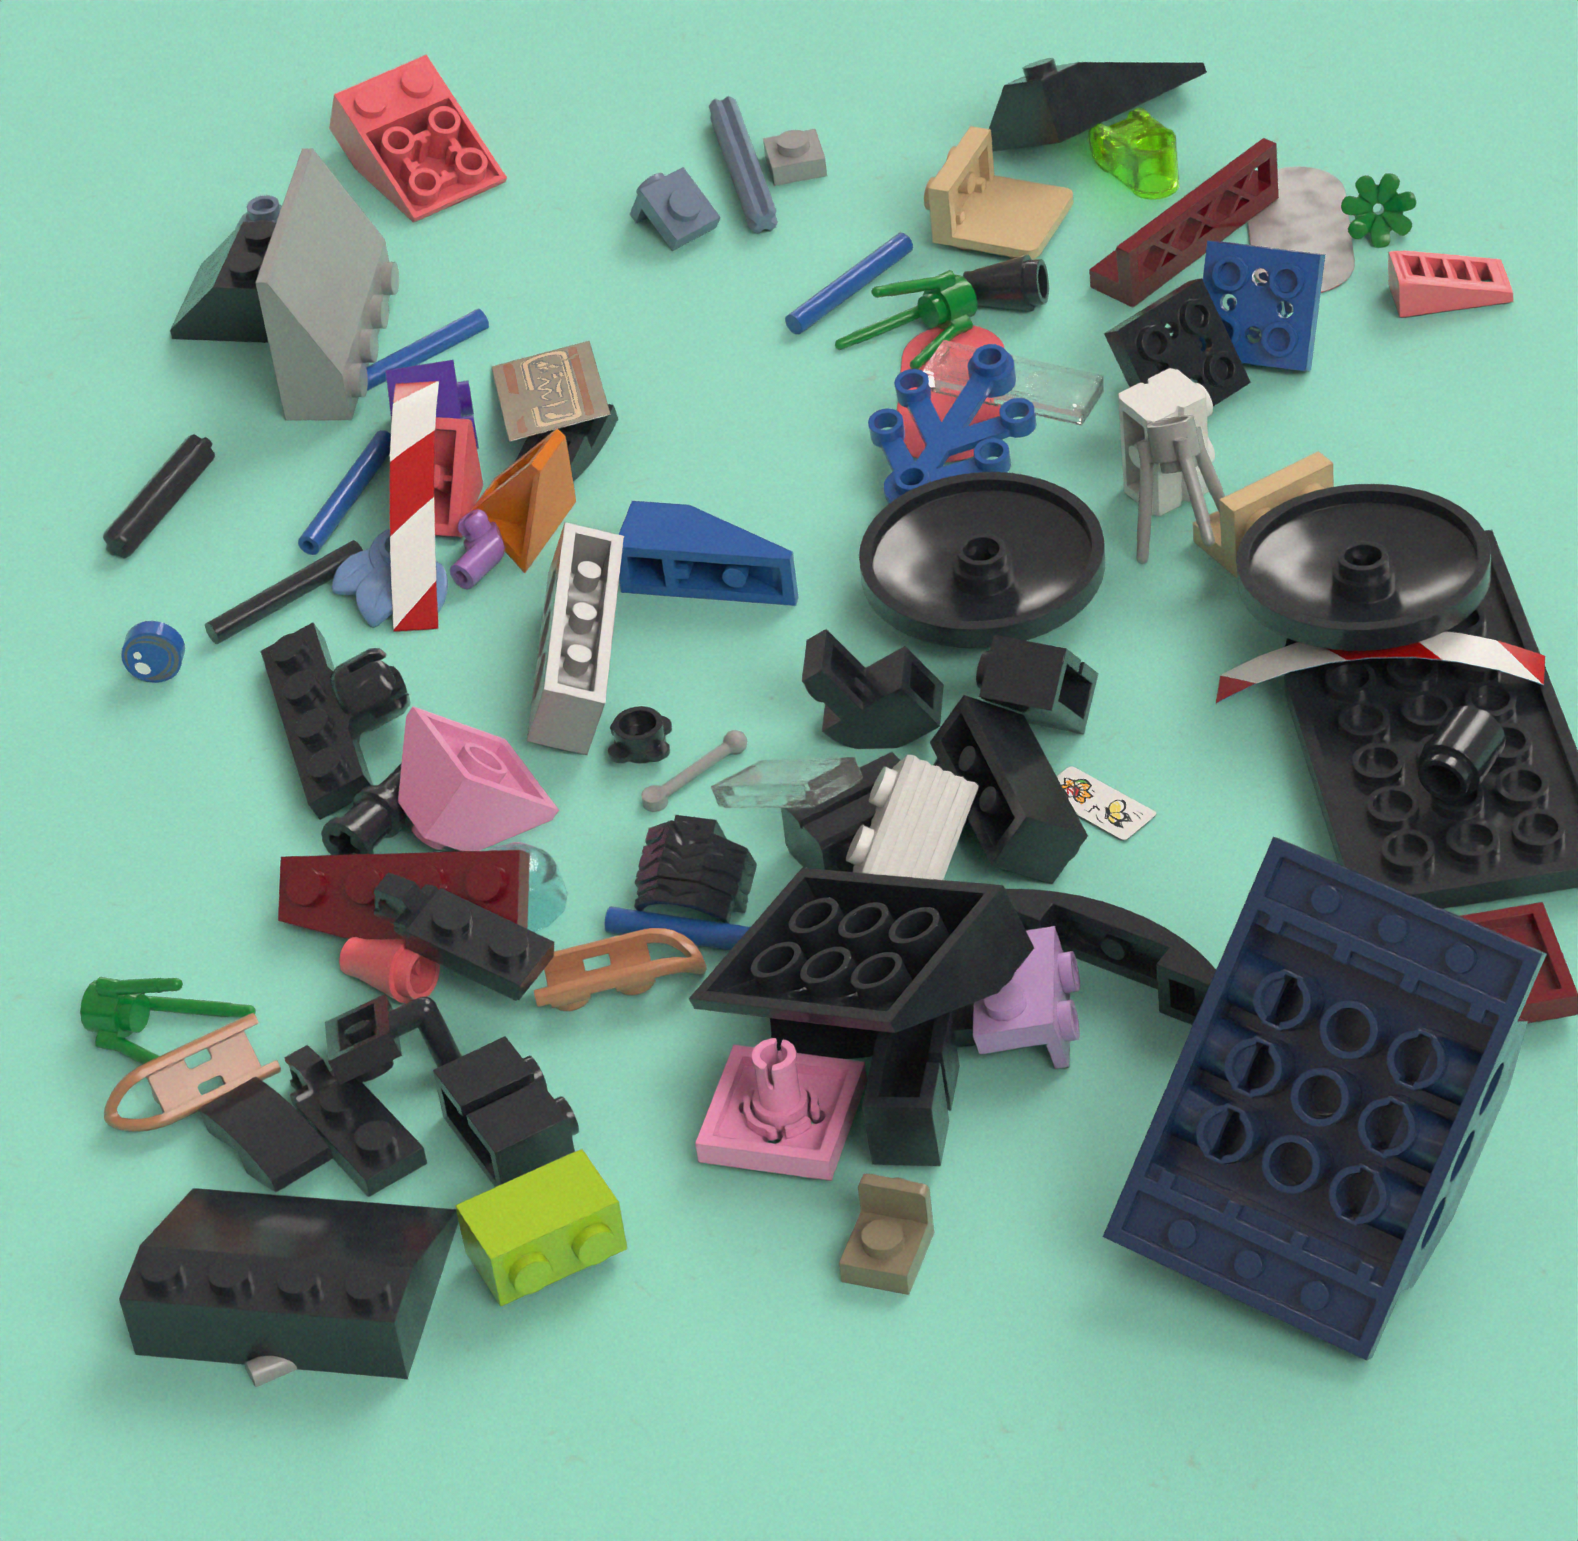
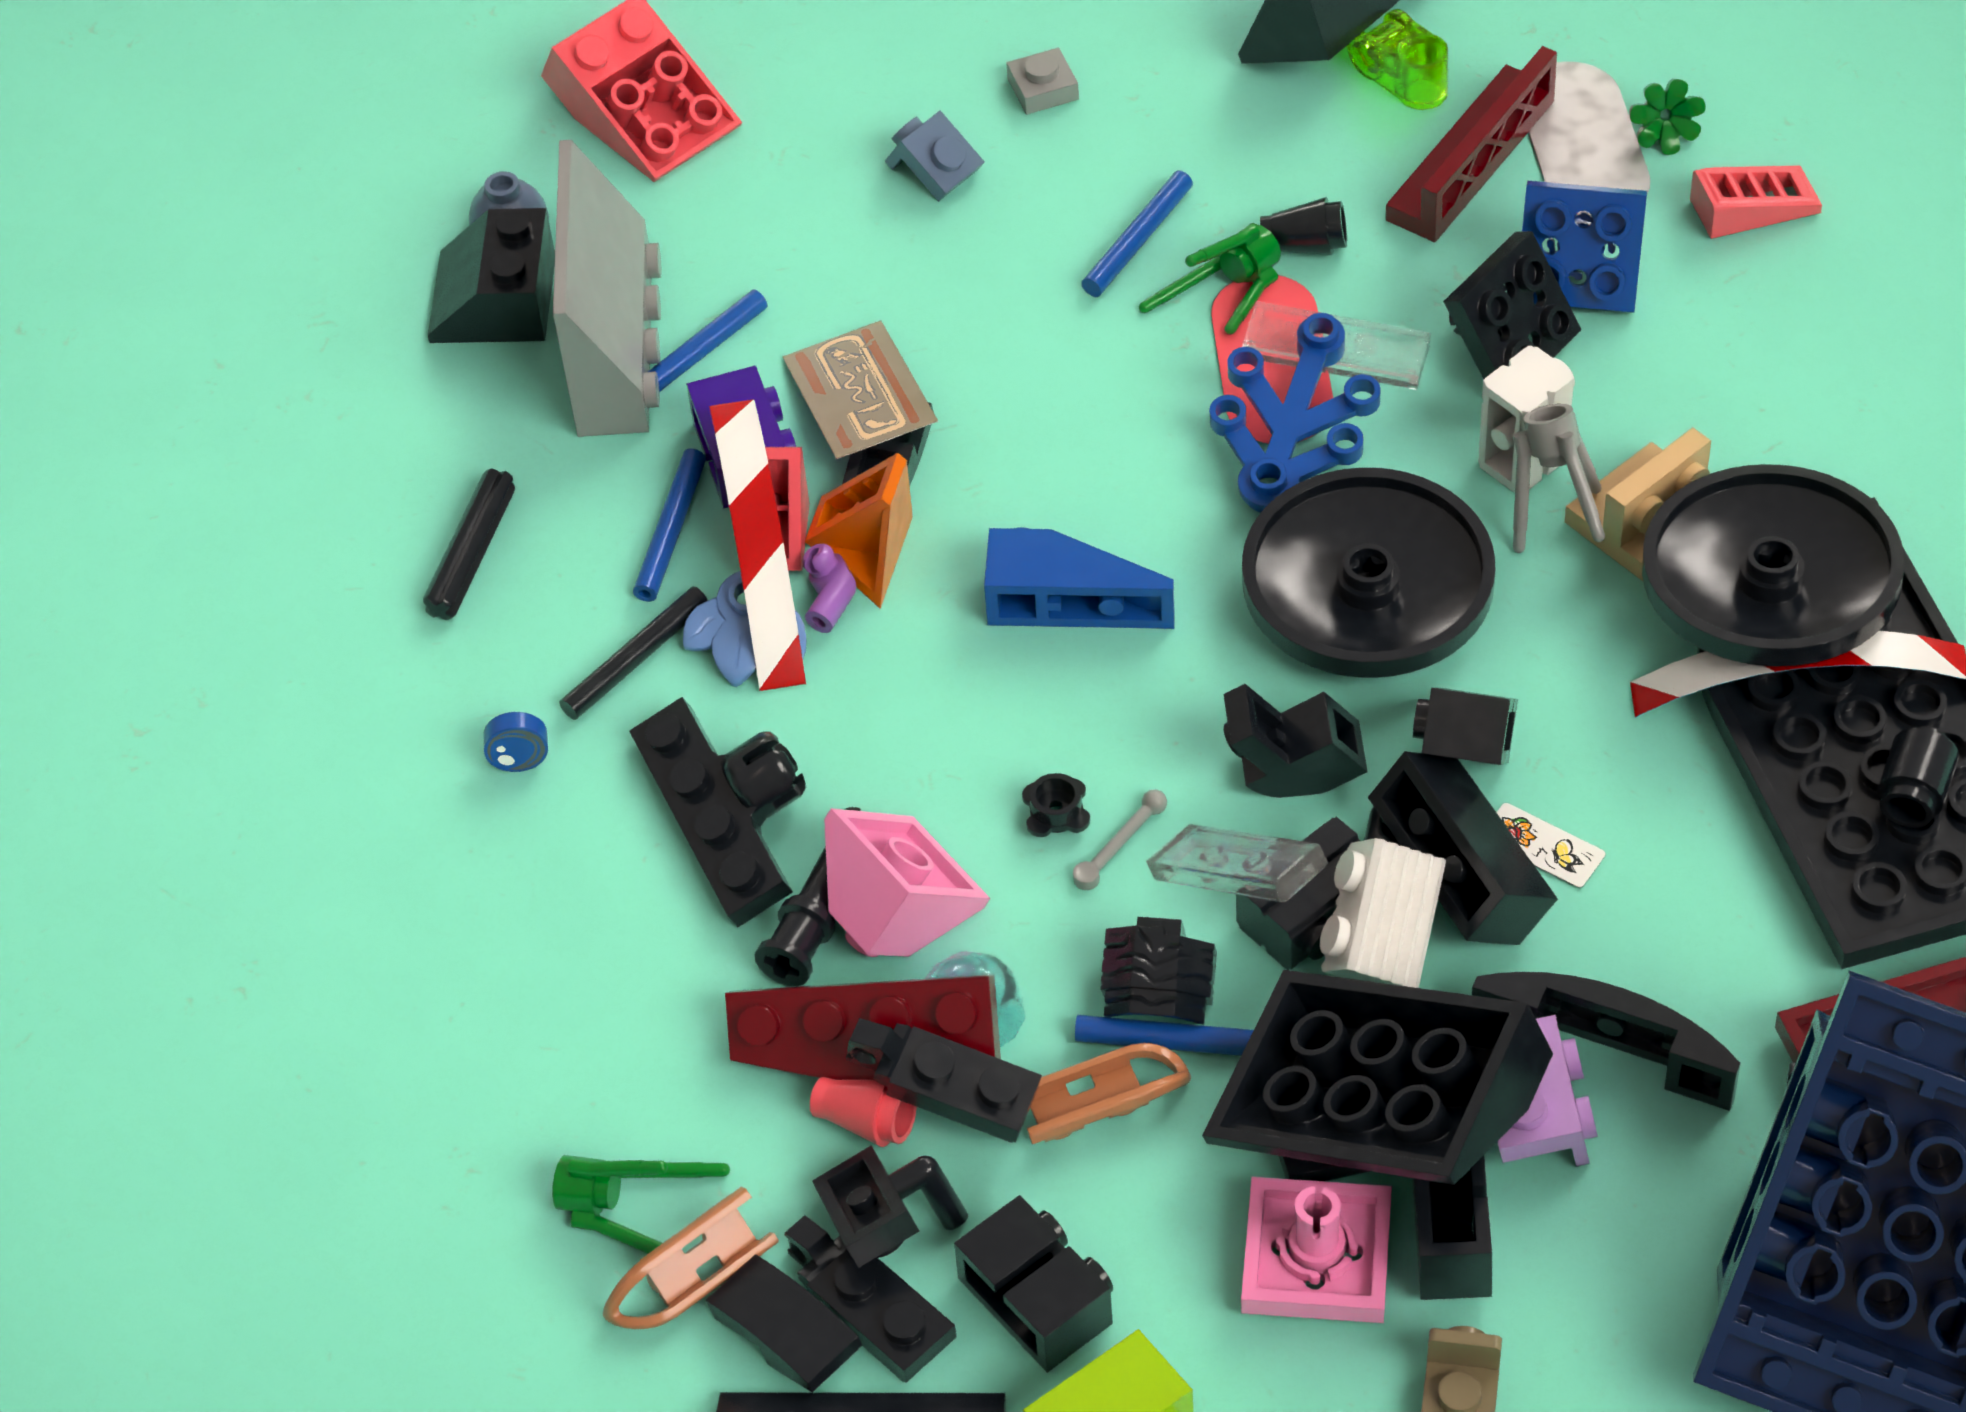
camera: 10 degrees left, 10 degrees up
(575, 639) = (968, 699): light grey brick -> none
(743, 164) = (991, 94): sand blue axle -> none
(989, 211) = (1270, 137): tan bracket -> none

